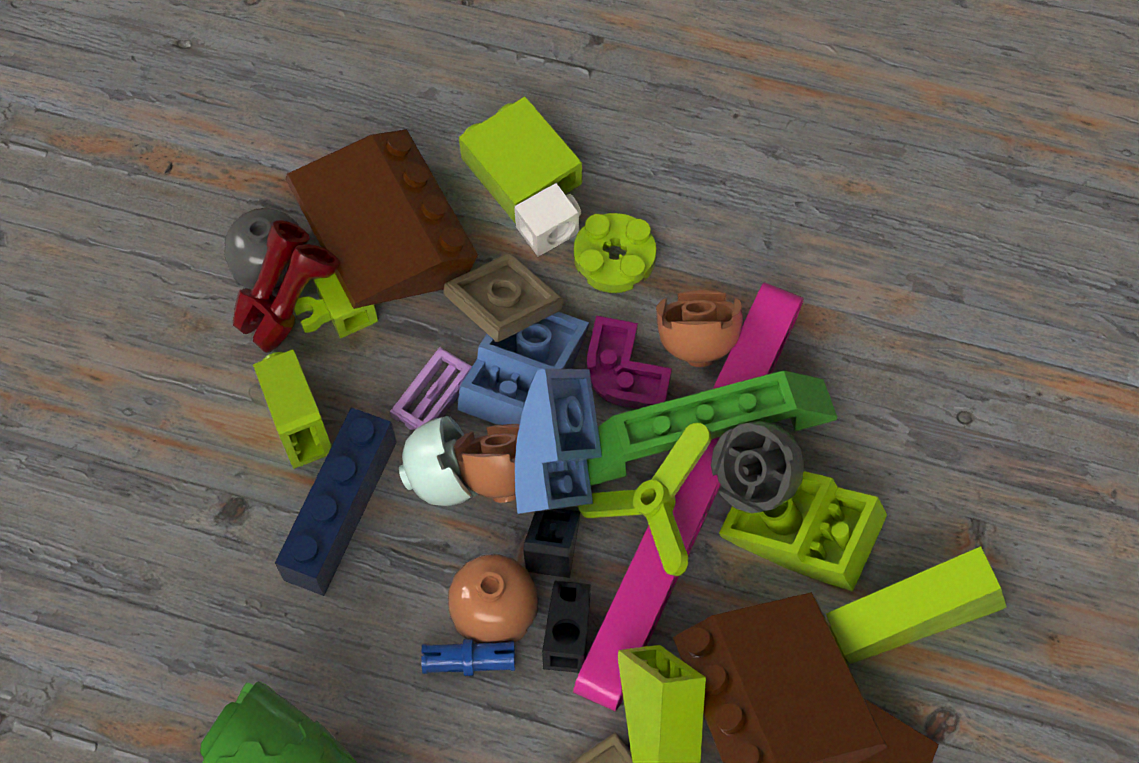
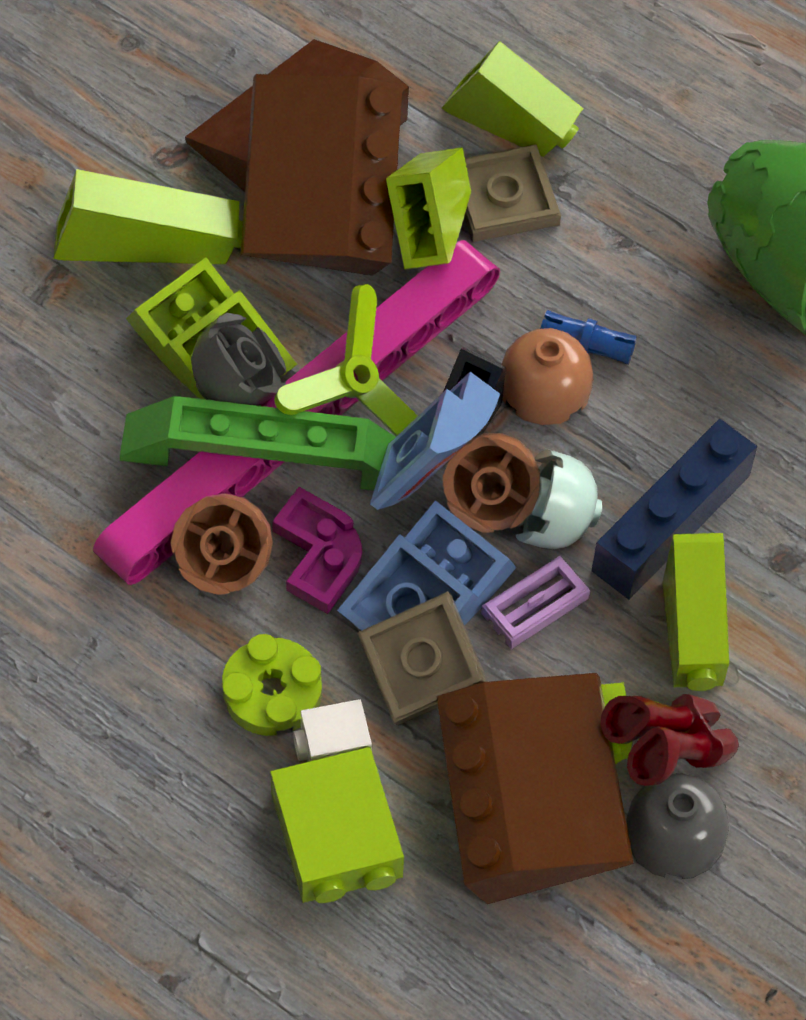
camera: 165 degrees left, 5 degrees down
(567, 627) = (484, 320): black leg -> none

